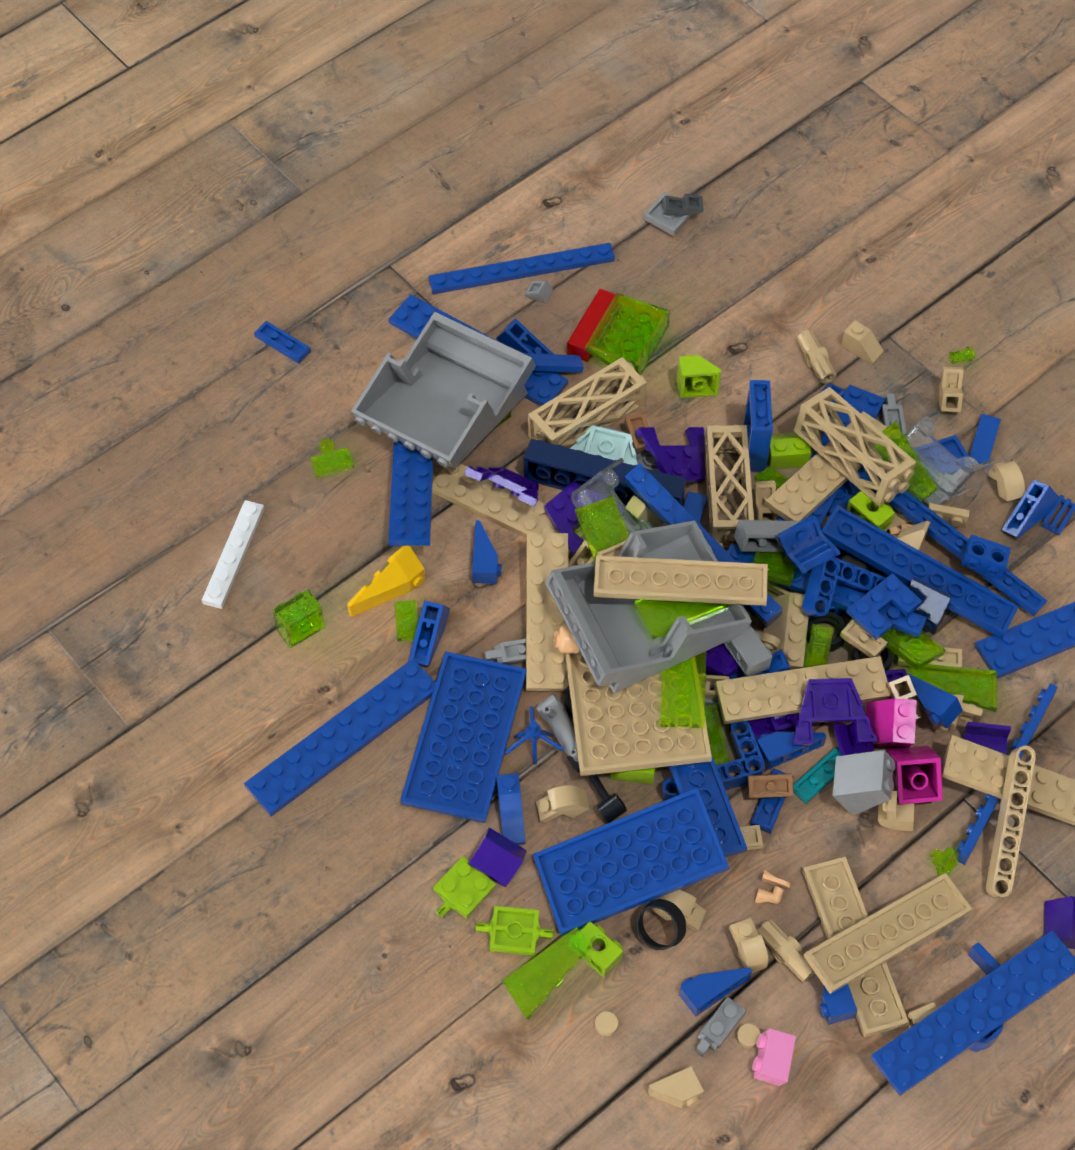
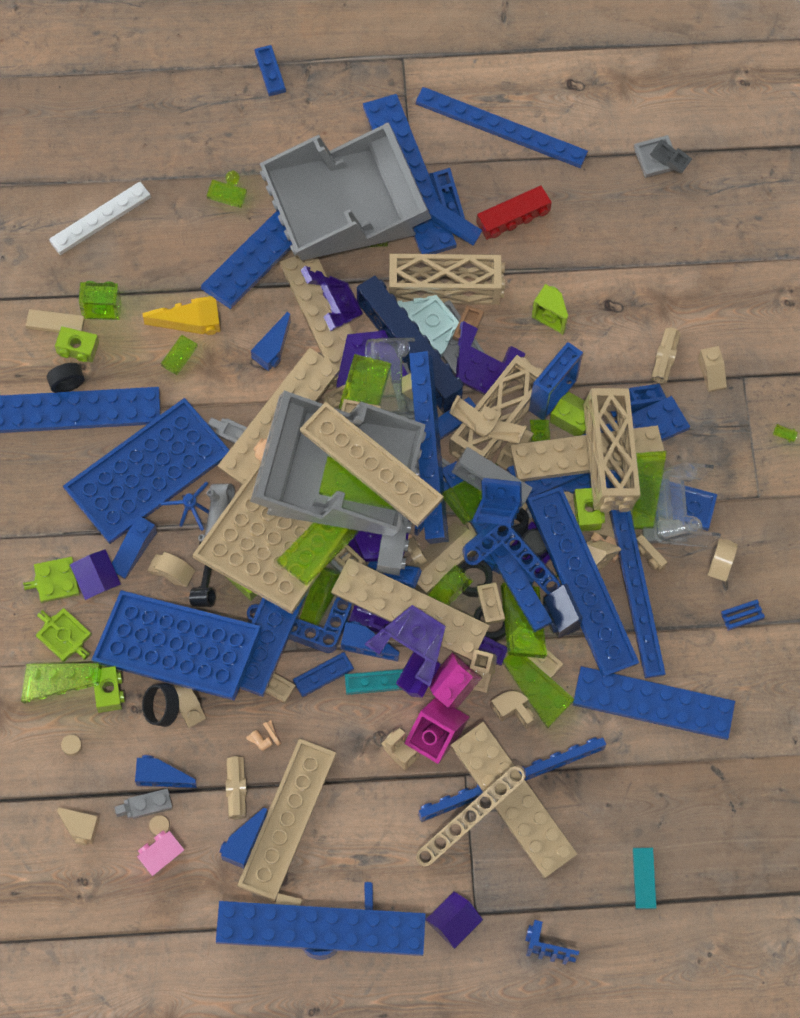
camera: 35 degrees right, 10 degrees up
(268, 667) = (53, 321): none -> tan tile
(313, 662) = (69, 337): none -> lime brick
(323, 704) = (65, 377): none -> black tyre
(429, 632) = (185, 374): blue slope -> none
(539, 291) = (498, 156): light grey slope -> none
(629, 331) = (531, 239): clear neon green slope -> none
(732, 493) = (486, 422): none -> tan plate
(751, 946) = (209, 764): tan brick -> none
(770, 785) = (326, 662): medium nougat plate -> none
(863, 780) = (389, 706): light grey slope -> none
(887, 933) = (314, 828): tan plate -> none
(889, 591) = (509, 582): blue plate -> none
(893, 412) = (681, 446): light grey hinge -> none
(939, 705) = (496, 688): blue slope -> none
(944, 861) = (404, 809): clear neon green tile -> none
(950, 389) = (746, 456): tan brick -> none
(984, 438) = (738, 514): blue tile -> none
(985, 556) = (647, 603): blue brick -> none
(987, 735) = (519, 744): dark purple panel -> none
(1031, 509) = (720, 594): blue slope -> none

